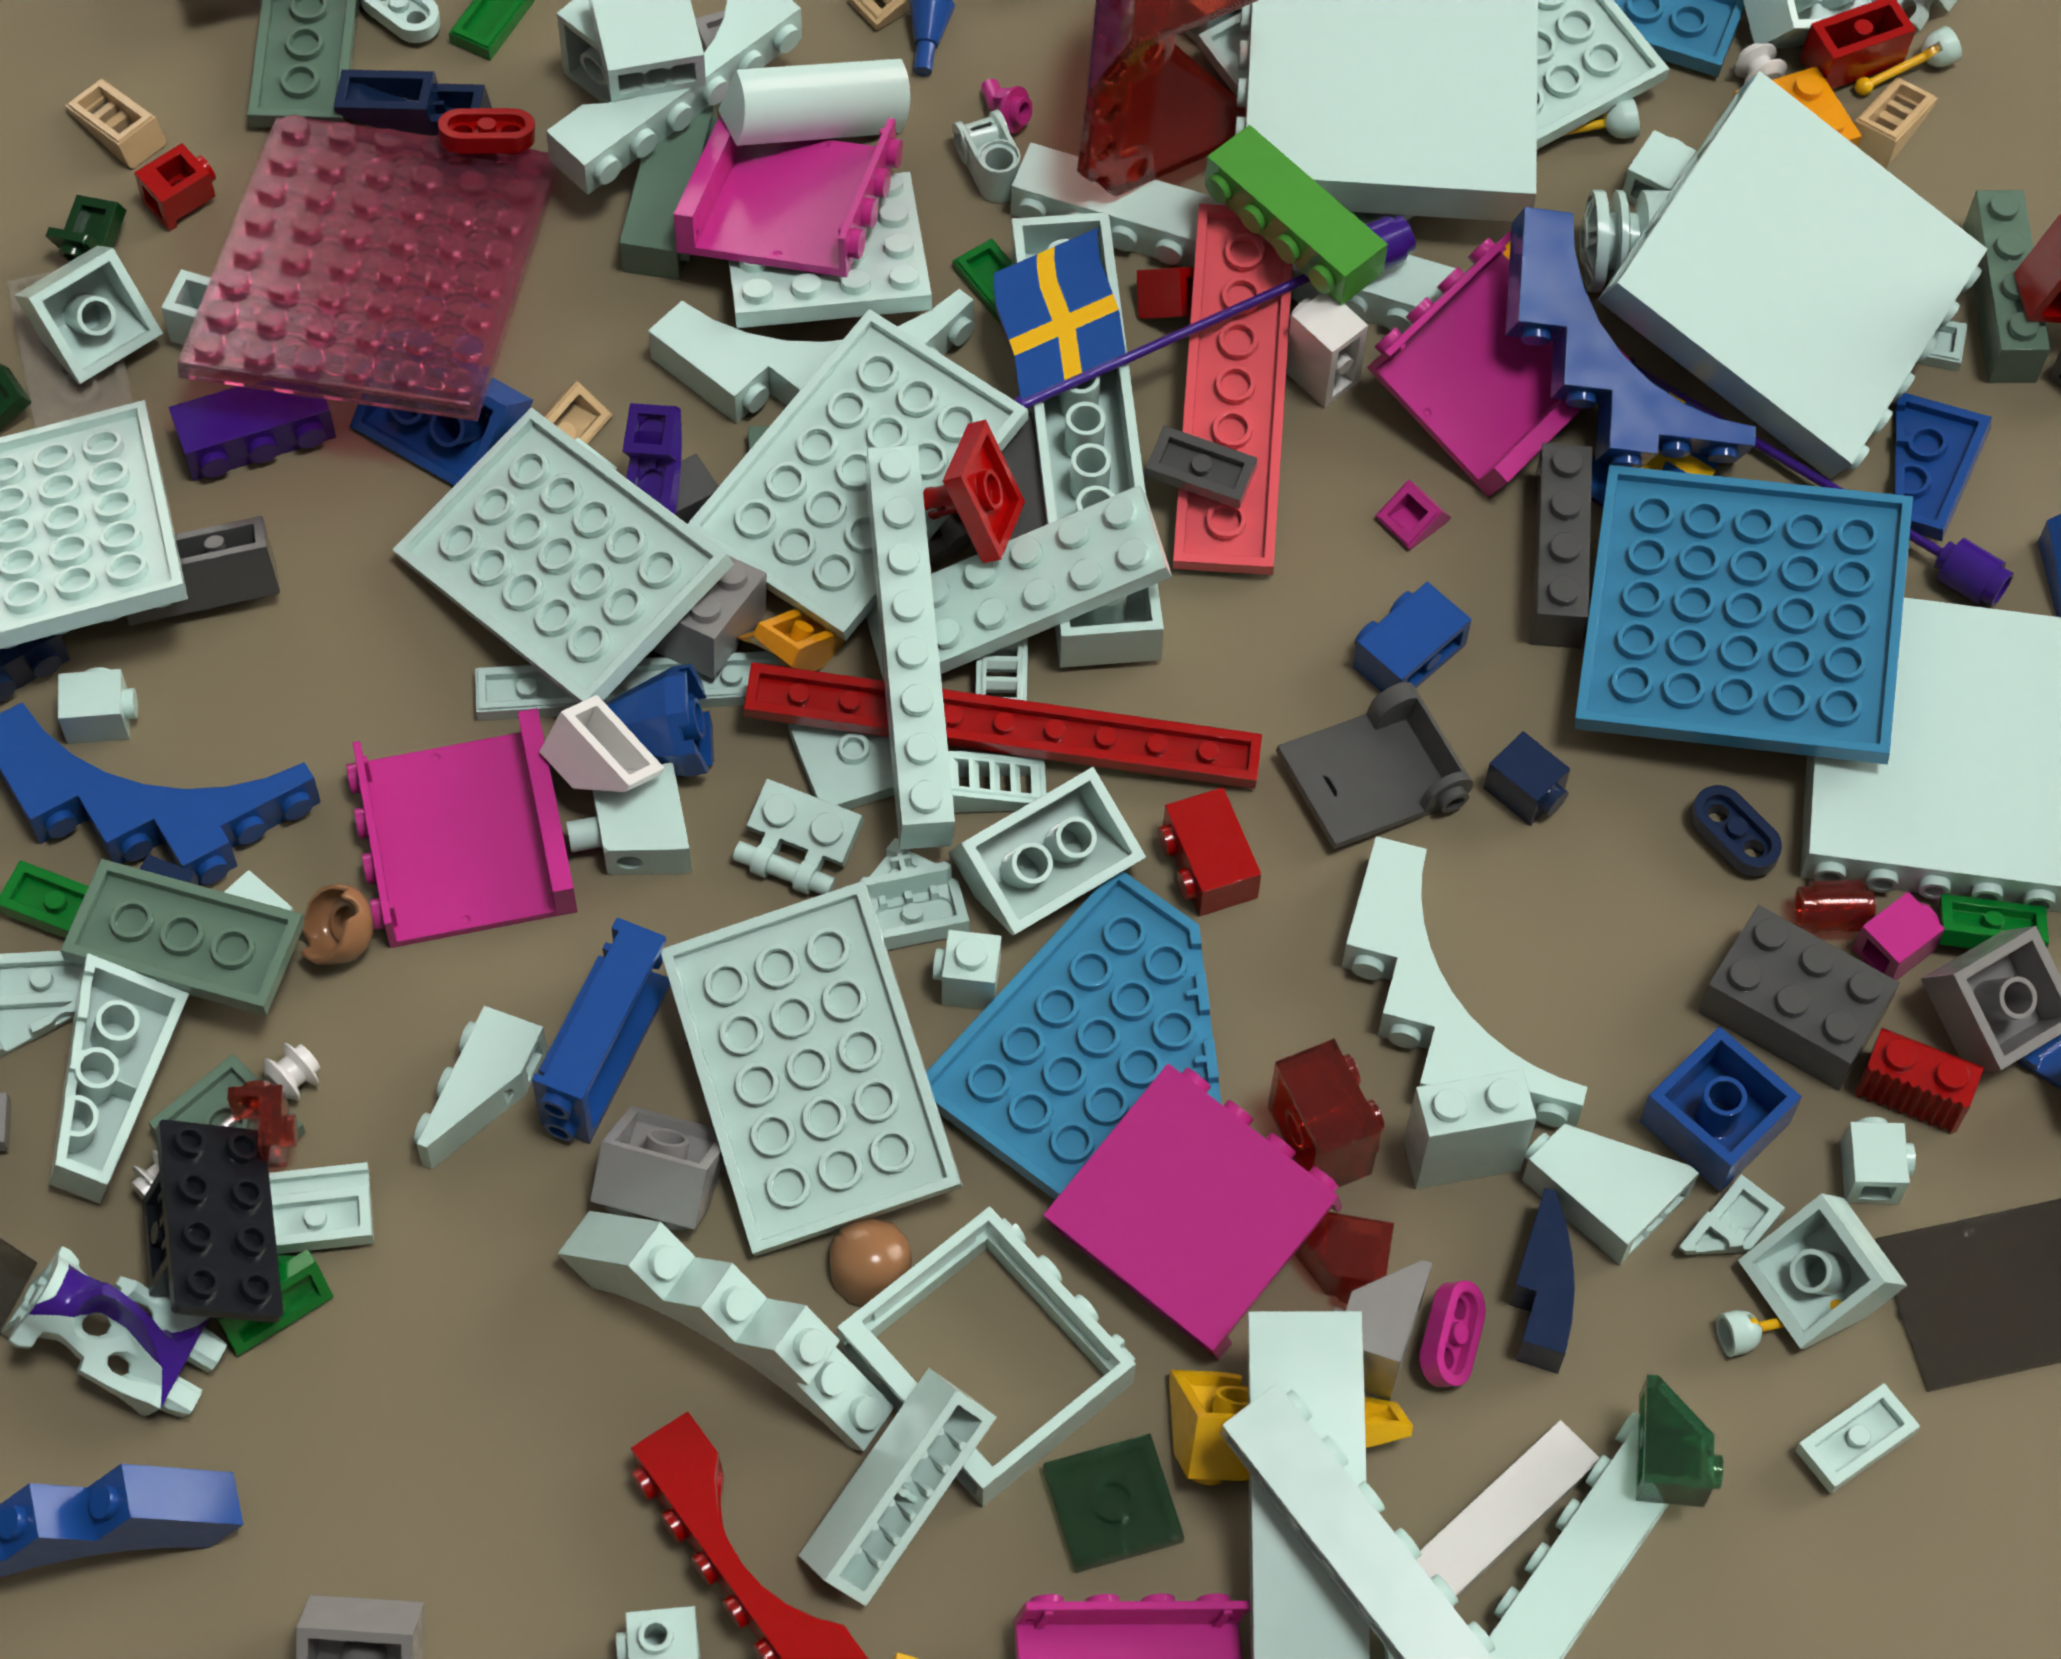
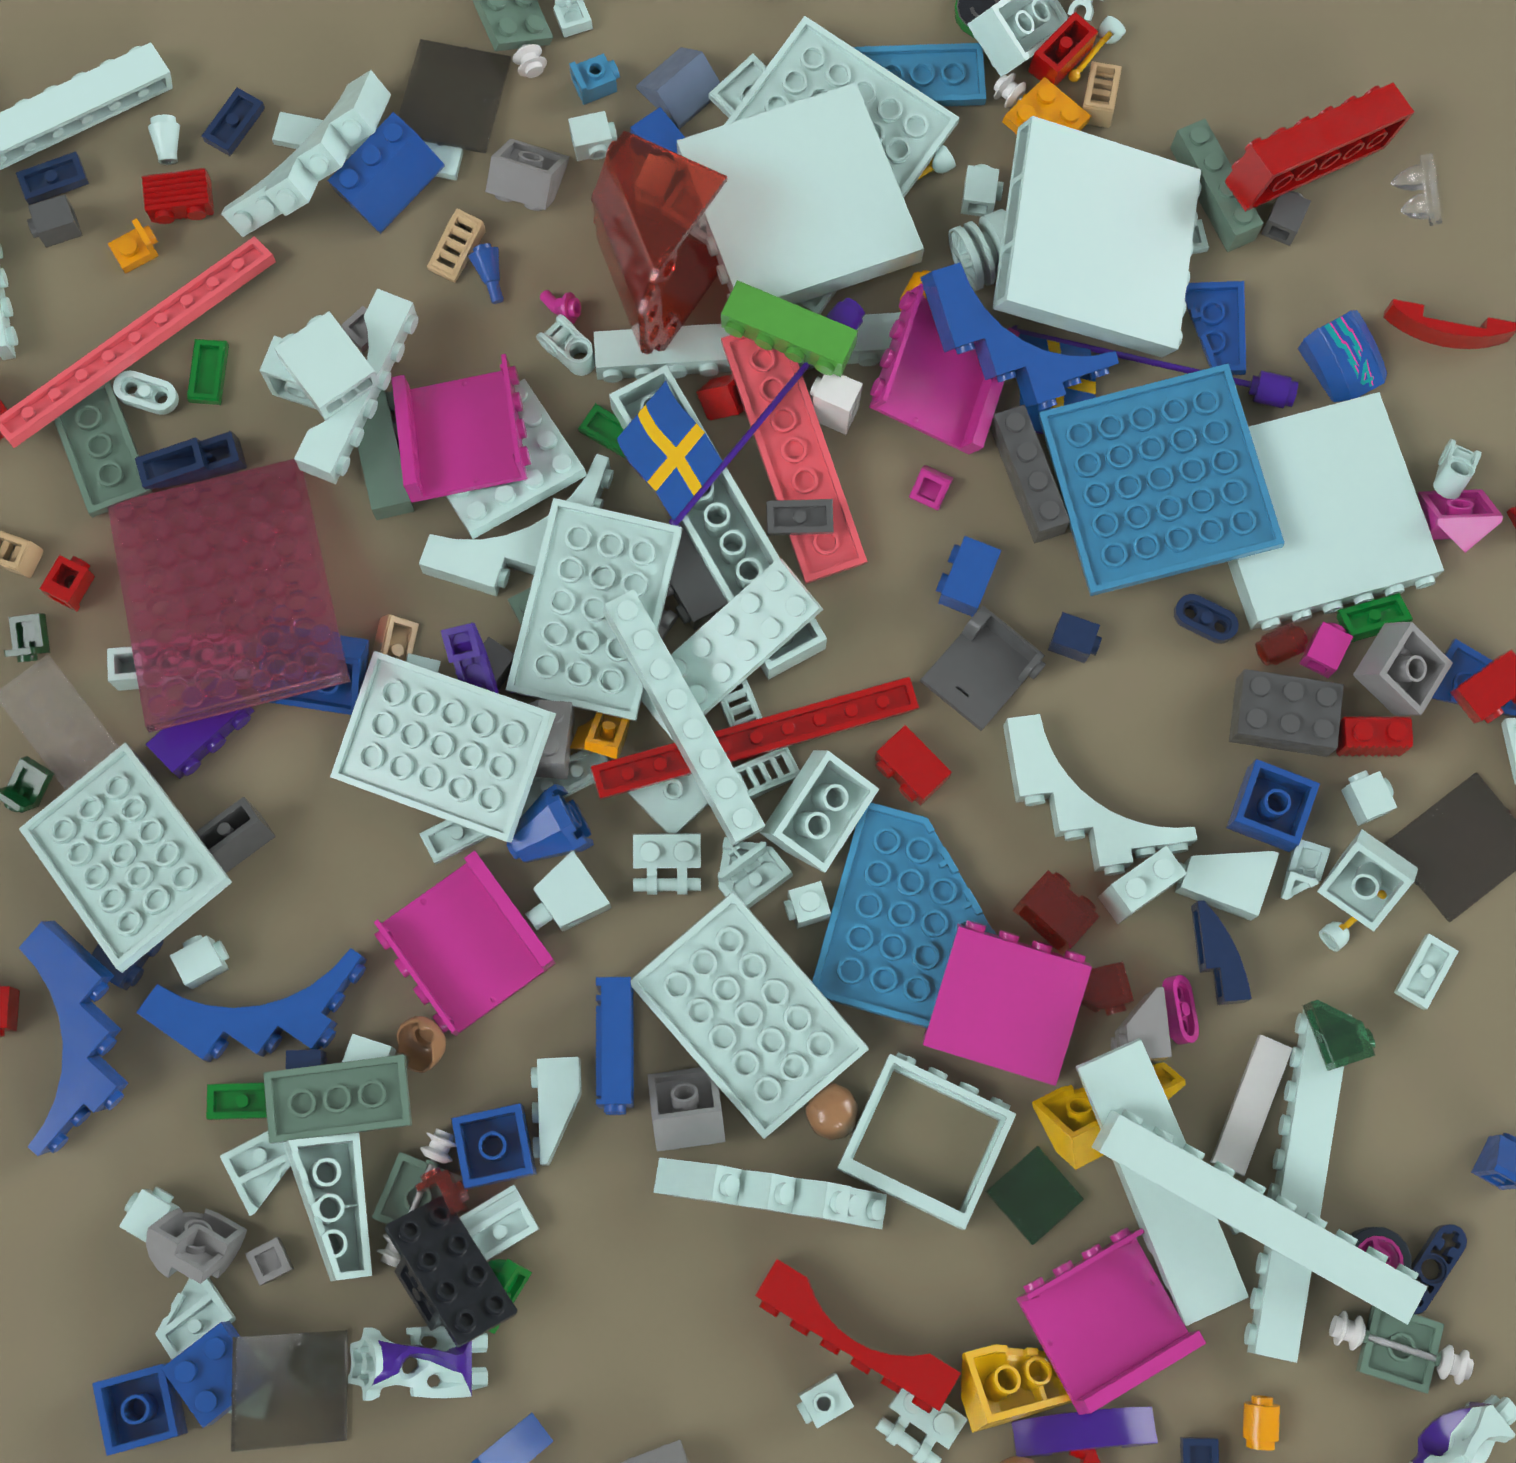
camera: 25 degrees left, 15 degrees up
(89, 313) = (60, 699): light aqua slope -> none
(365, 1097) = (493, 1146): none -> blue brick
(486, 131) = (250, 465): red plate -> none
(598, 750) = (530, 868): white slope -> none
(815, 101) = (449, 360): light aqua brick -> none
(896, 1487) = (916, 1250): light aqua brick -> none
(980, 491) = (682, 601): red tile -> none

